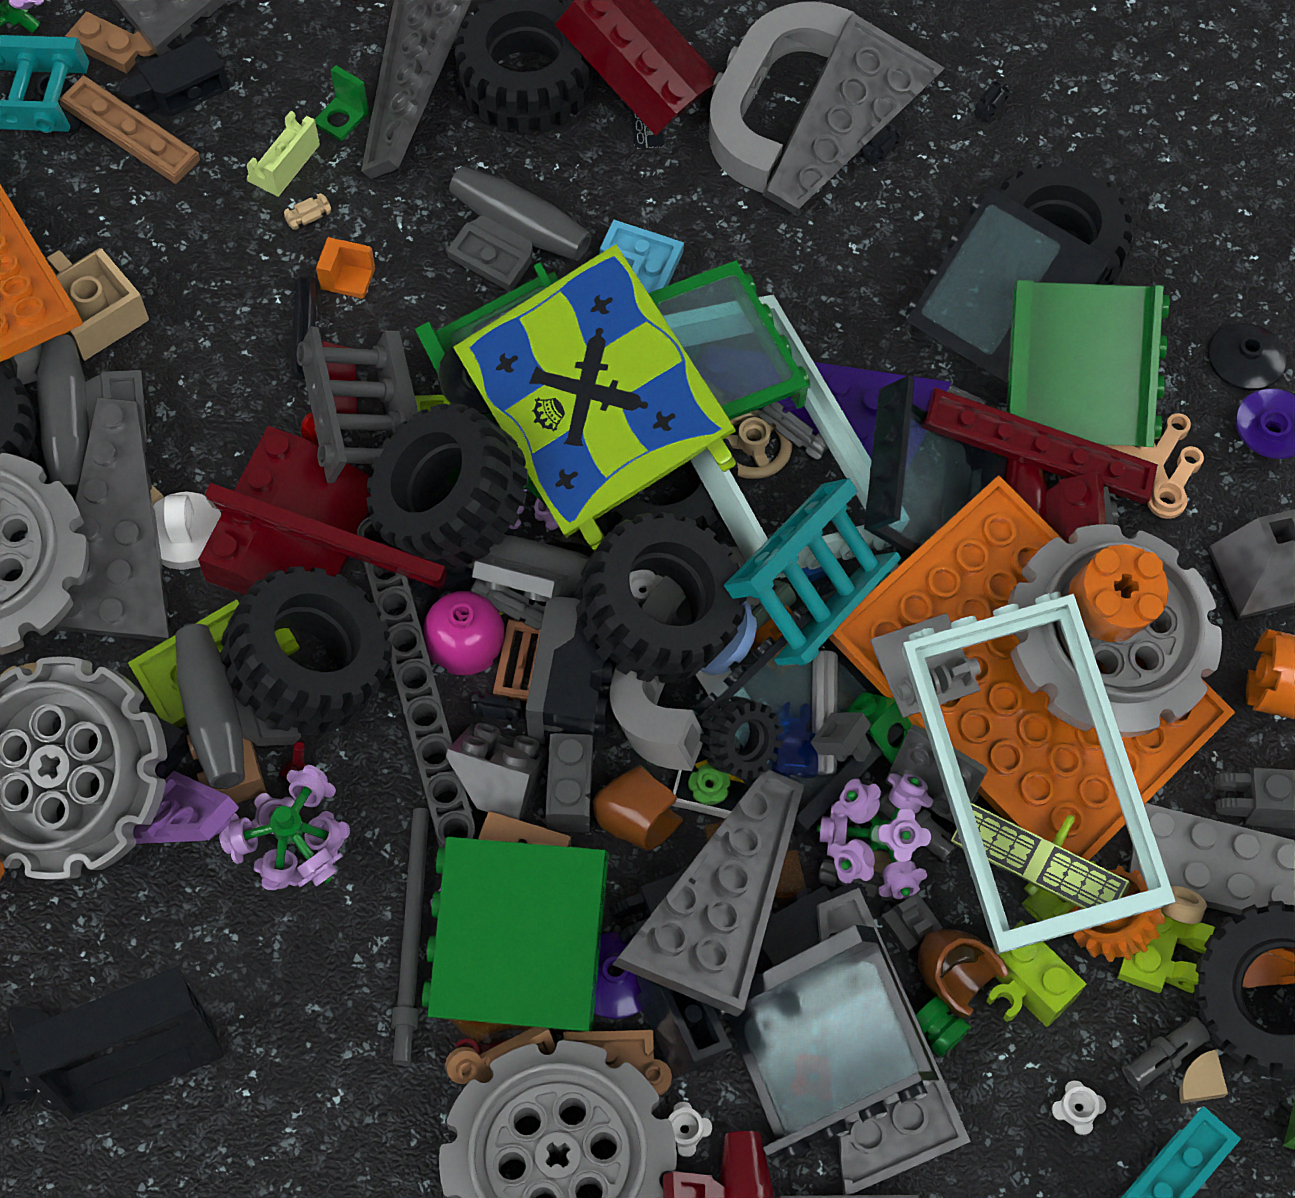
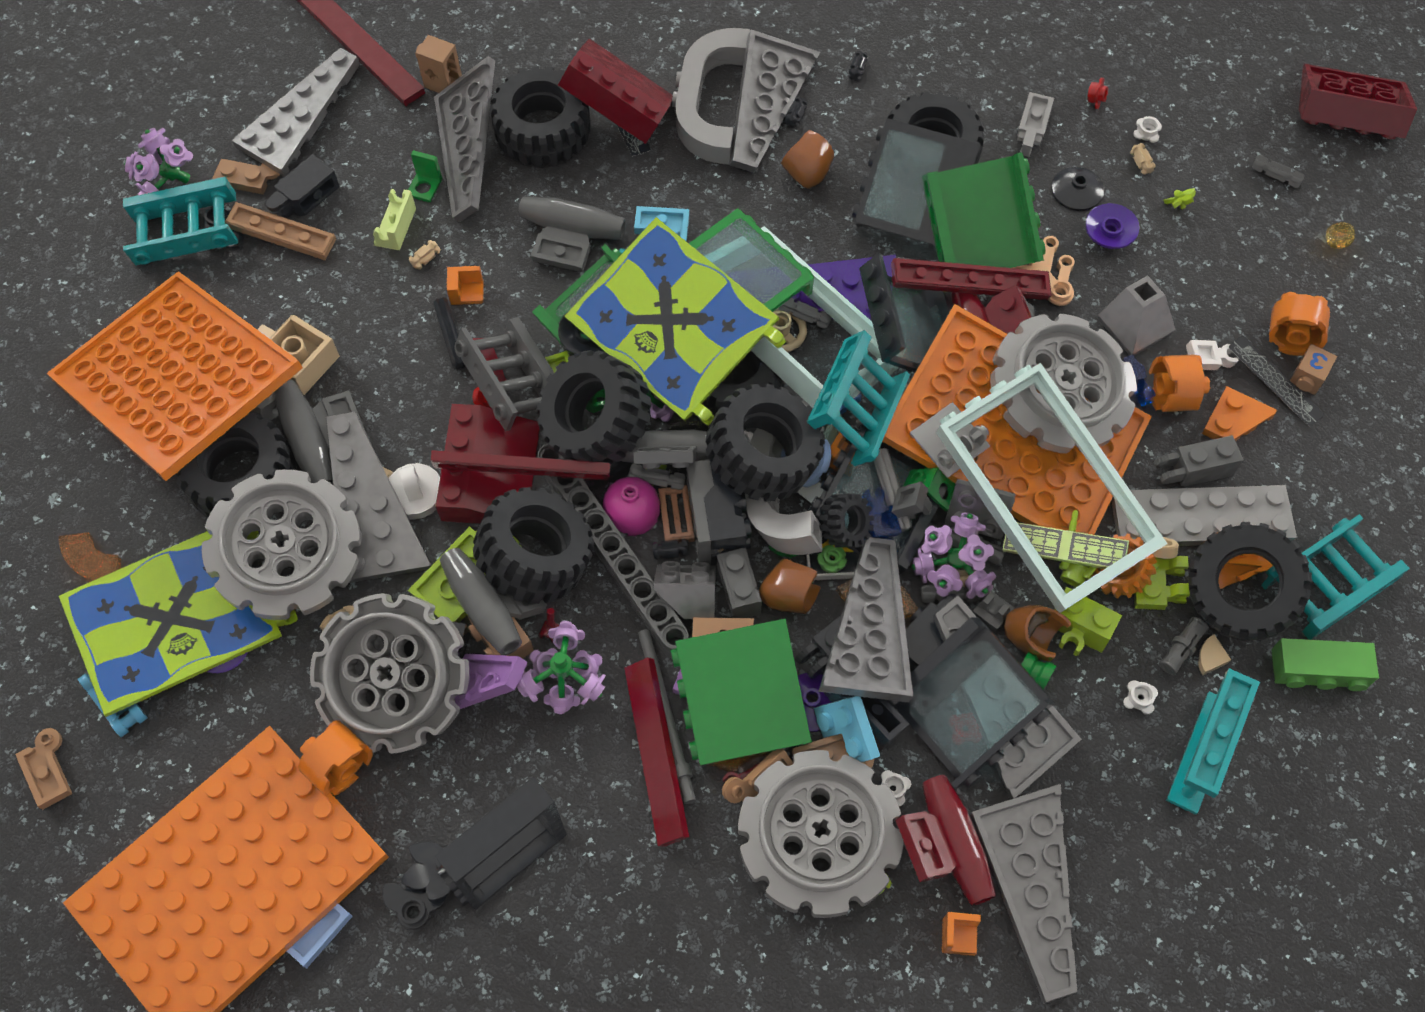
camera: 15 degrees left, 0 degrees up
(378, 982) = (656, 753): none -> dark red tile
(649, 1015) = (850, 720): none -> medium azure plate
(873, 216) = (809, 159): none -> dark orange piece
(1120, 592) = (1067, 353): orange brick -> none
(1215, 244) = (1034, 121): none -> light grey hinge
(1233, 650) = (1144, 391): none -> clear blue plate

